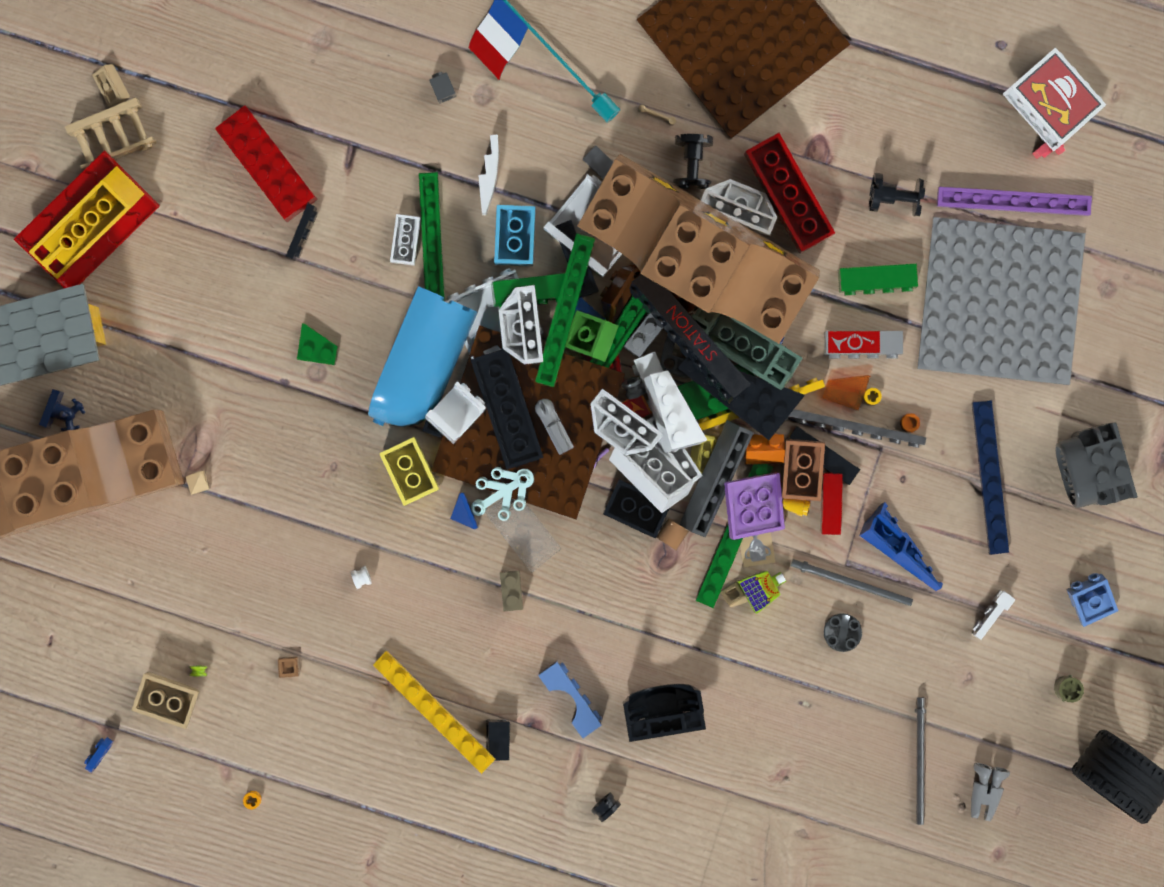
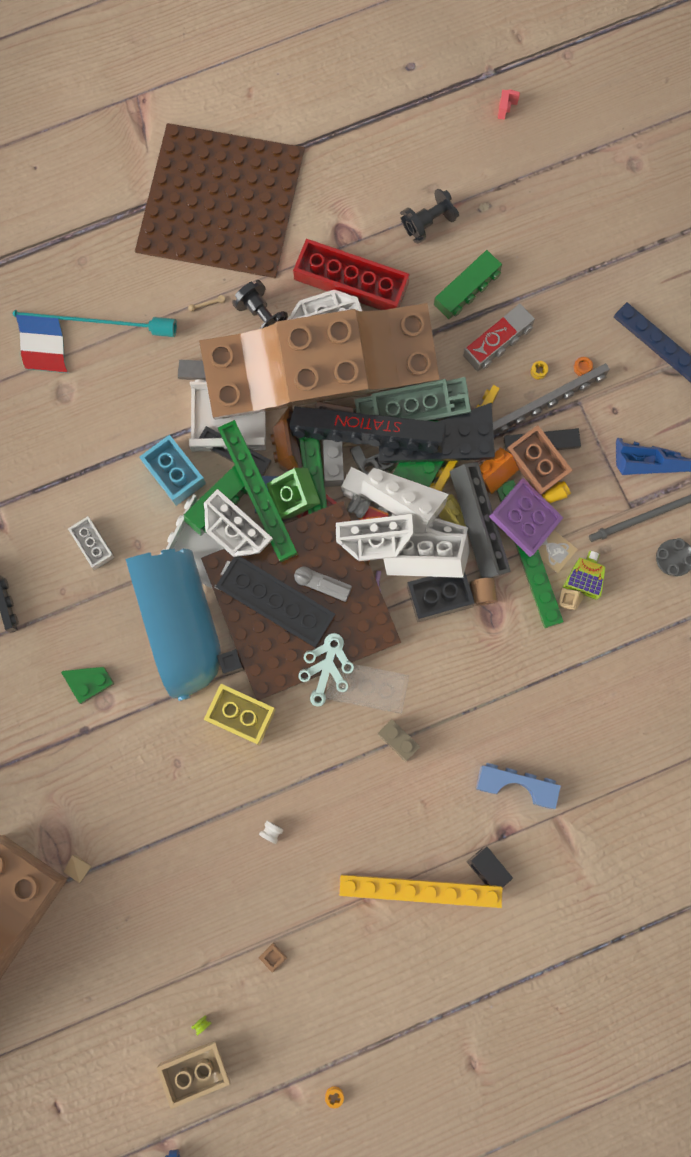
camera: 35 degrees left, 10 degrees down
(431, 233) = (103, 517): green tile -> none
(442, 87) = (28, 410): dark grey brick -> none
(456, 412) = (238, 636): white panel -> none
(462, 512) = (309, 712): blue slope -> none
(488, 181) = (117, 448): white slope -> none
(606, 807) = (621, 849): black wheel -> none
(663, 711) = (598, 731): black piece -> none
(831, 504) = (583, 470): red slope -> none
(846, 391) = (517, 382): clear orange wing -> none
(1001, 301) = (569, 232): light grey baseplate -> none
(1014, 201) = (515, 157): medium lavender plate -> none
(1054, 99) = (481, 66): panel -> none

